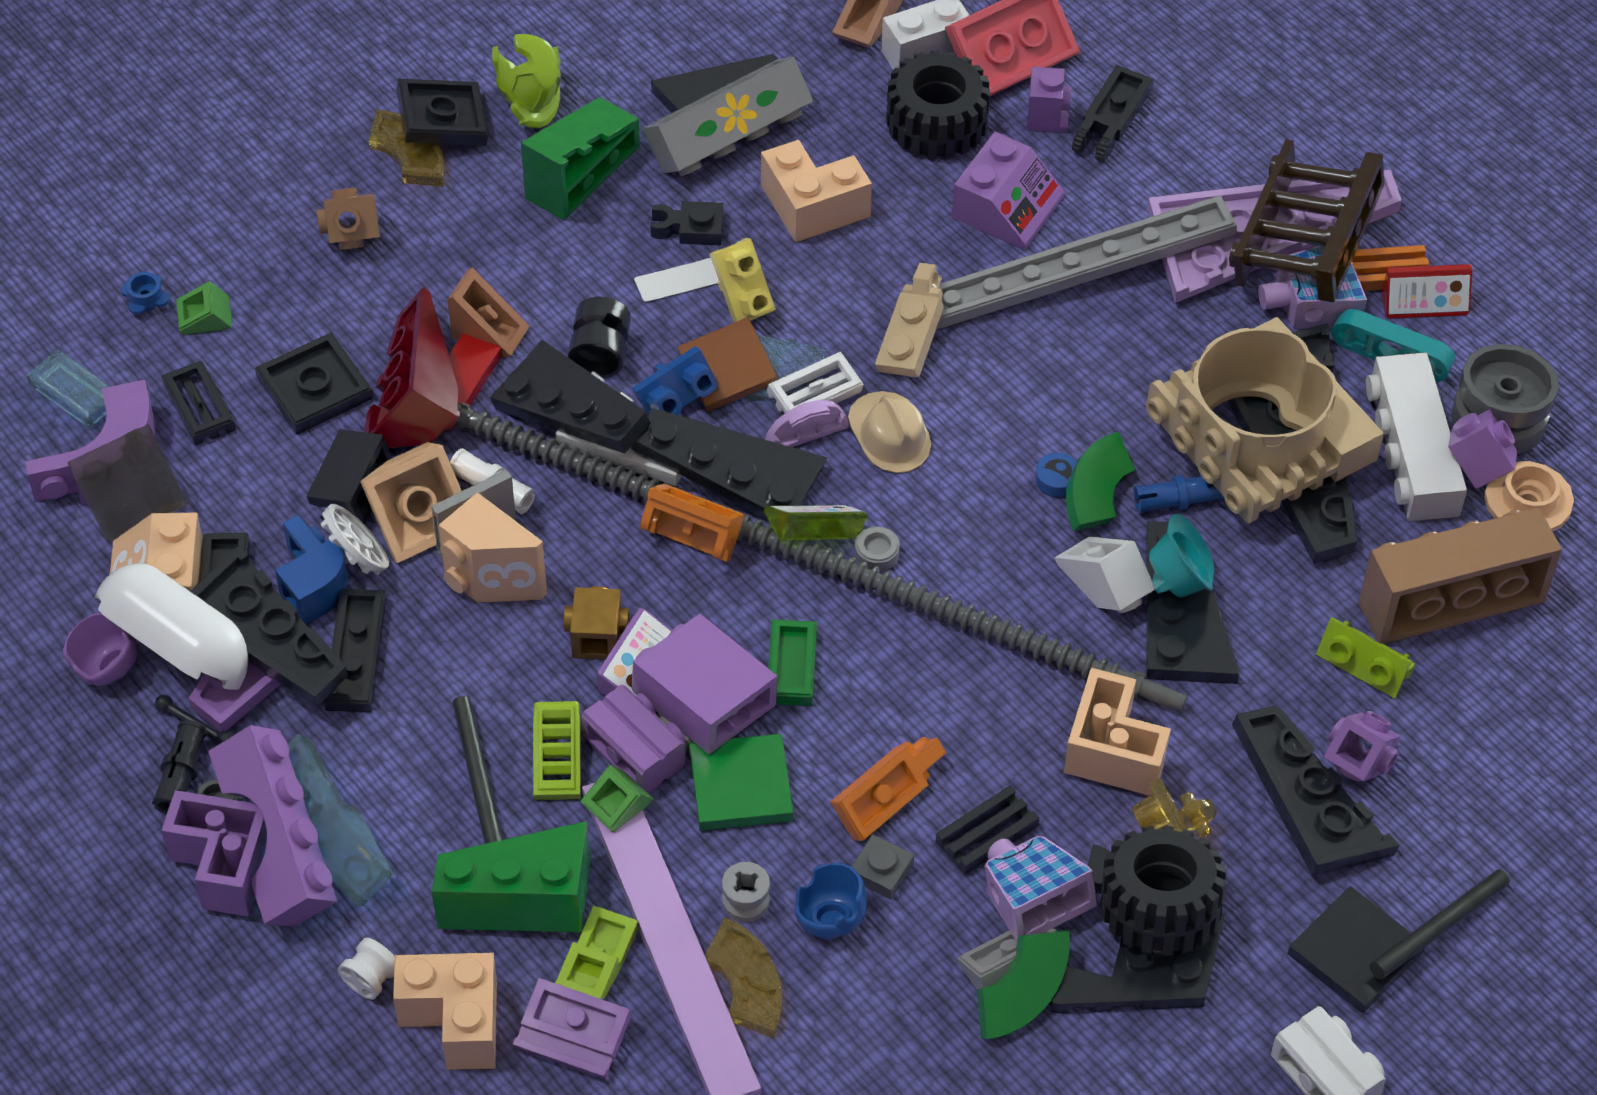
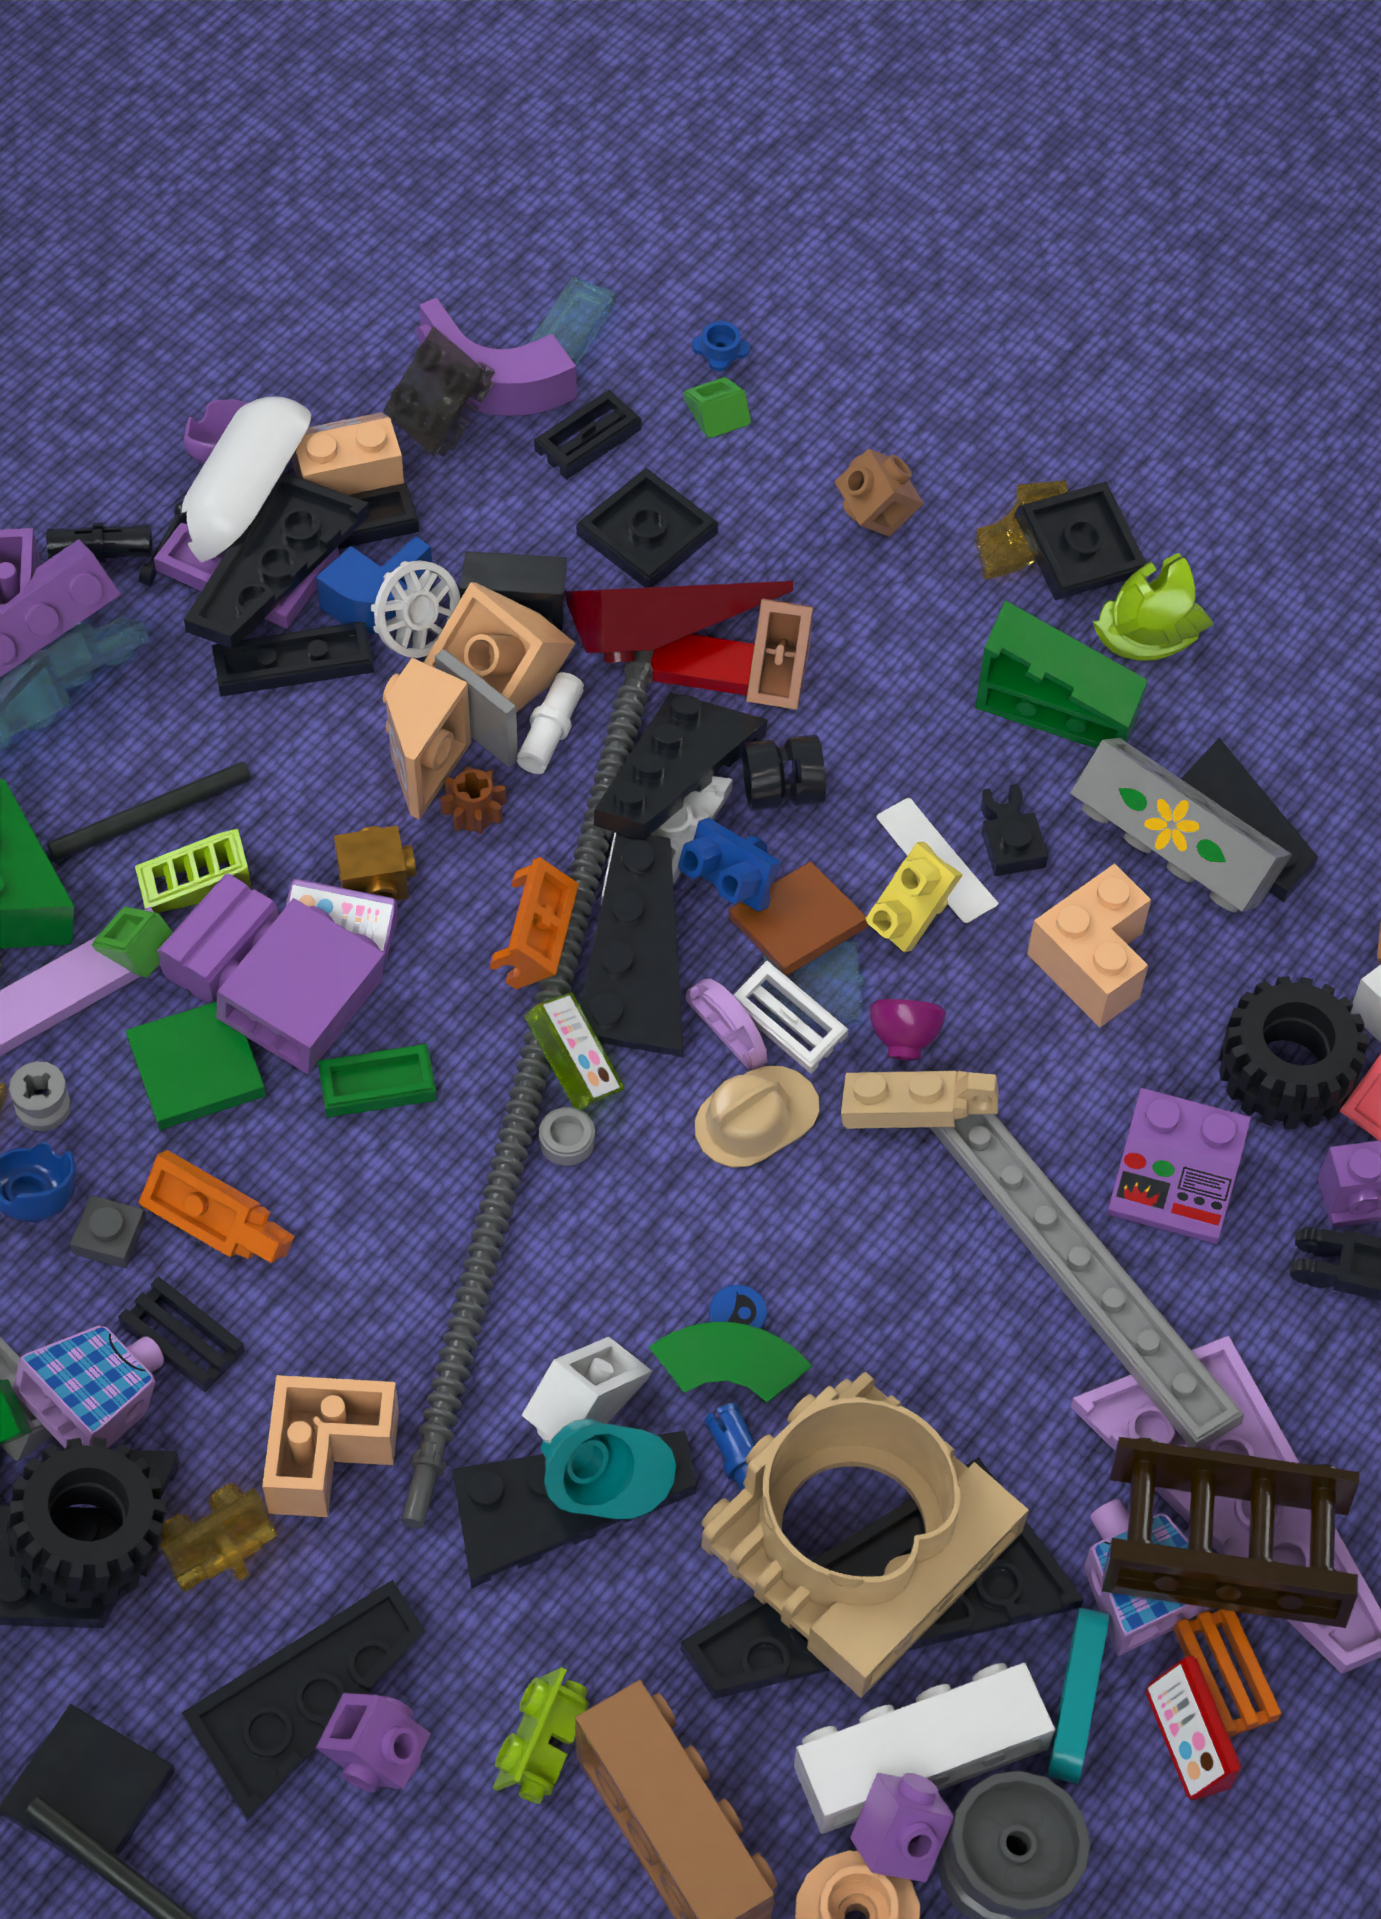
camera: 75 degrees right, 5 degrees up
(558, 541) = (473, 800): none -> dark orange gear
(848, 316) = (906, 1026): none -> magenta brick

